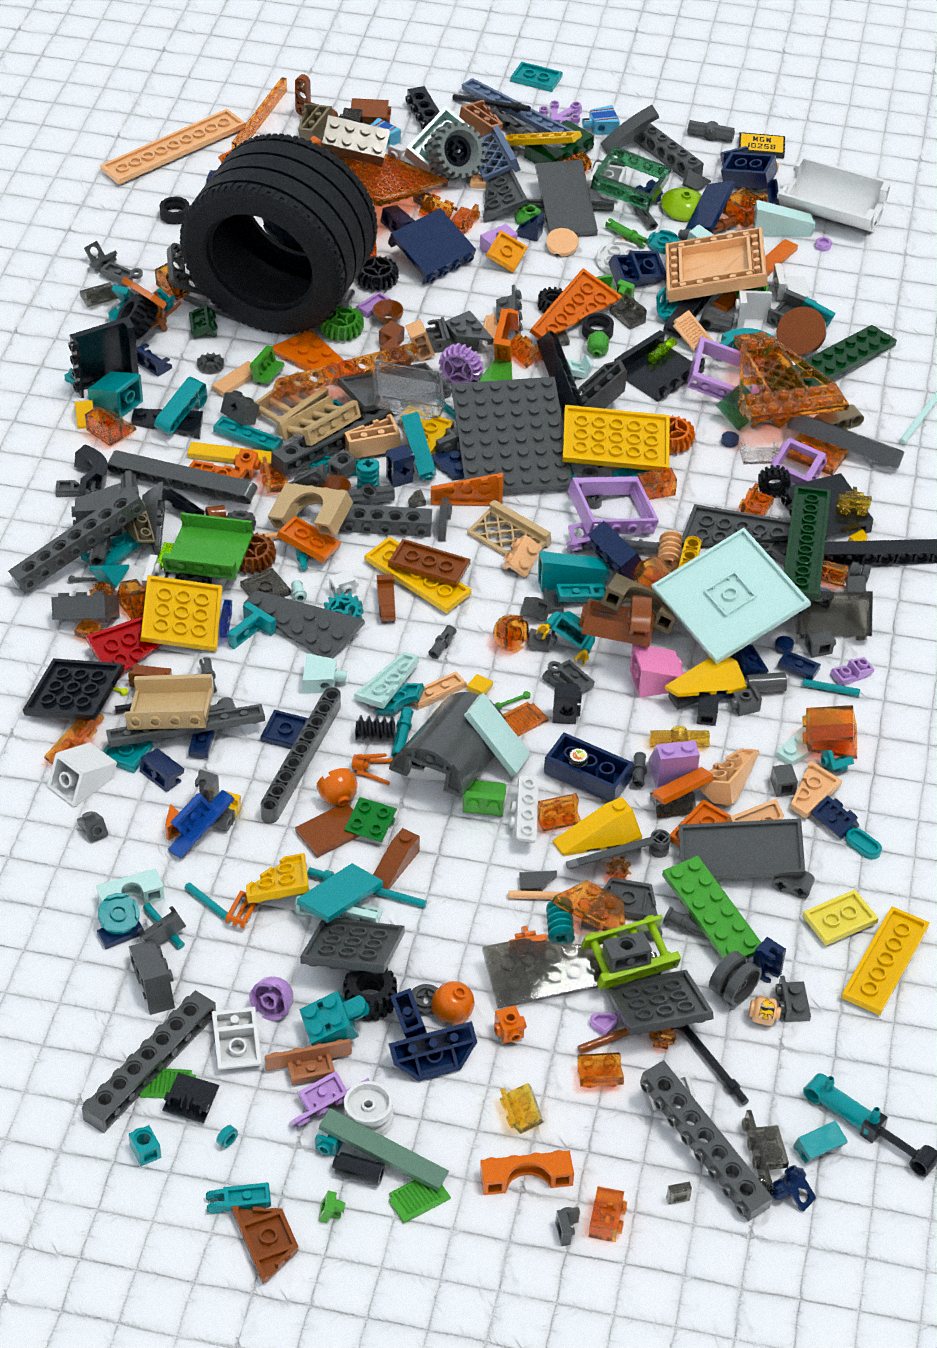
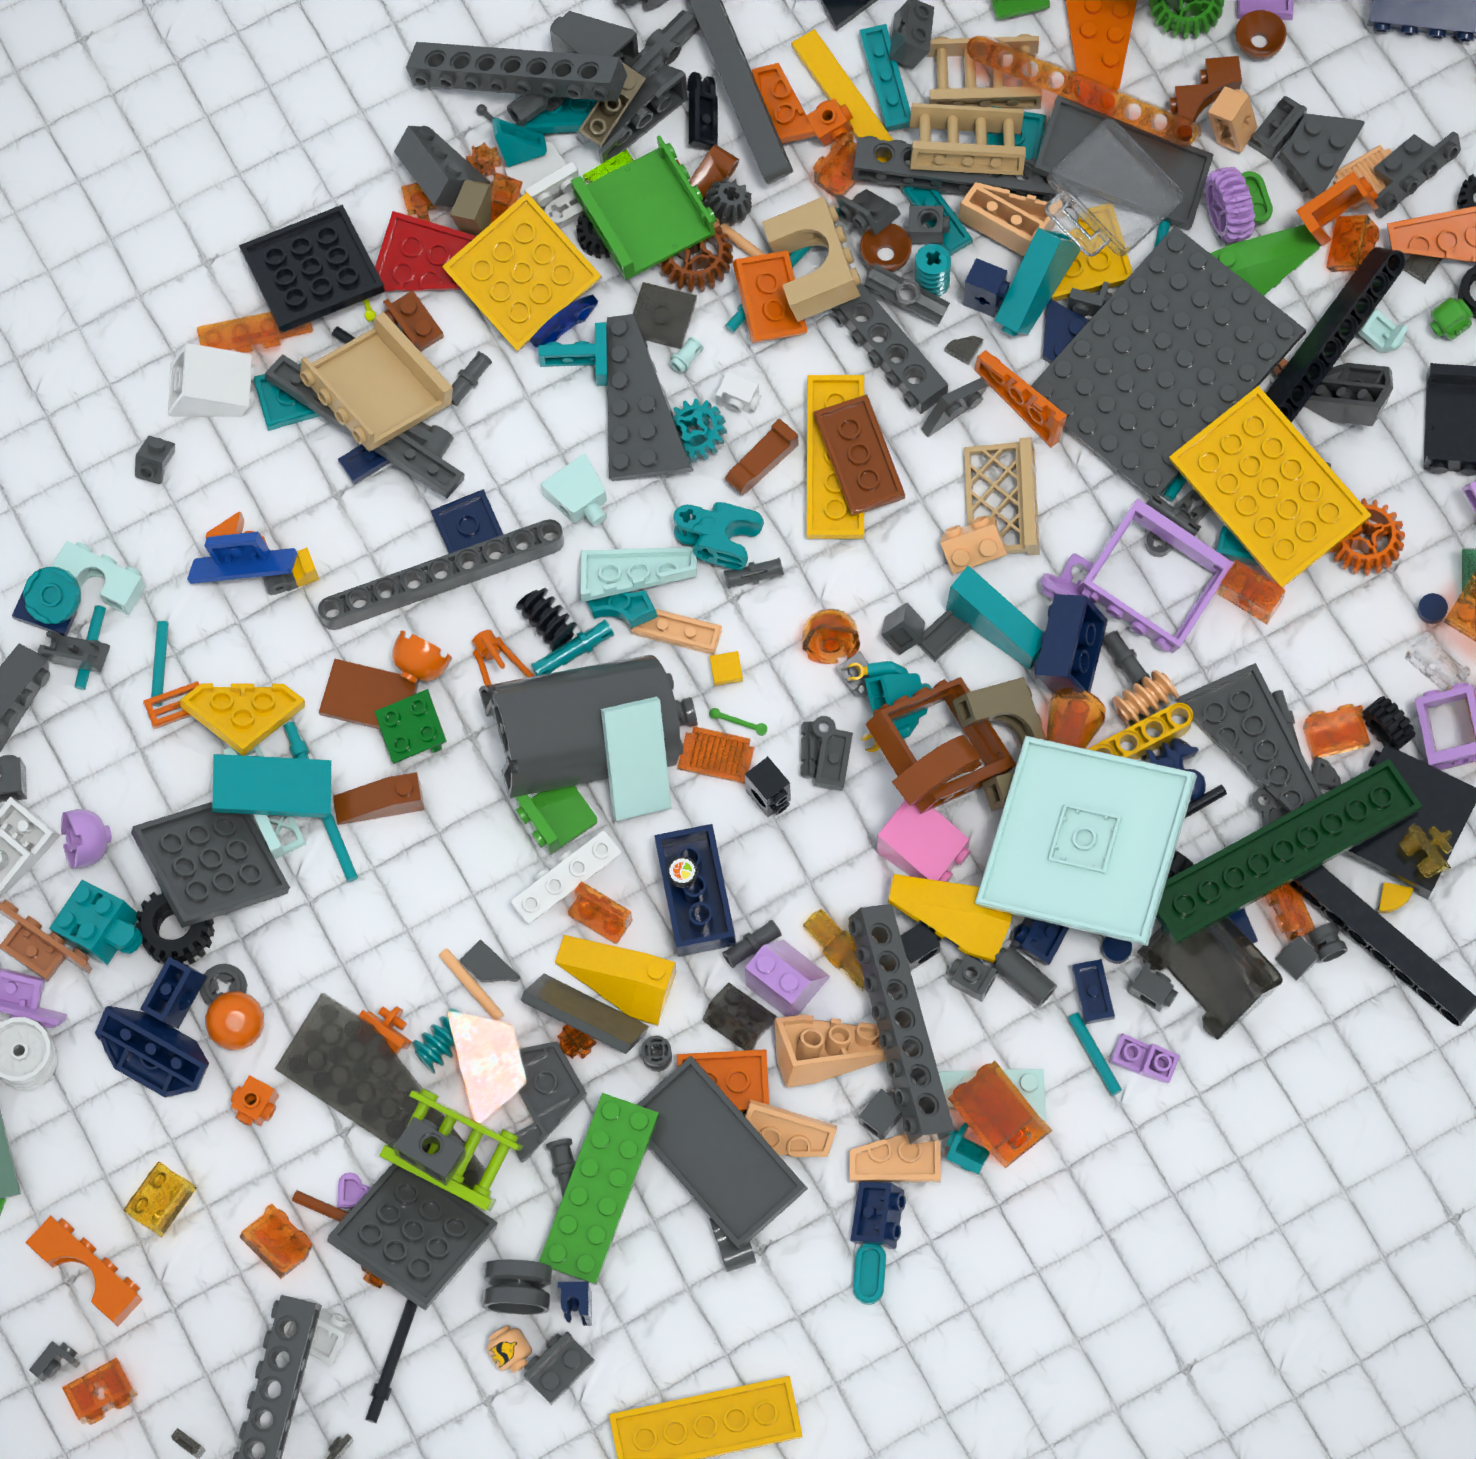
camera: 55 degrees right, 25 degrees up
(127, 603) = (473, 207): none -> dark tan slope
(161, 769) = (290, 455): dark blue hinge -> none
(208, 784) = (291, 533): dark grey hinge -> none
(407, 636) = (713, 529): none -> teal piece
(579, 592) = (975, 656): teal plate -> none
(682, 785) = (750, 1015): orange tile -> none
(747, 734) = (912, 1035): none -> dark grey brick
(840, 917) = (725, 1330): light yellow plate -> none

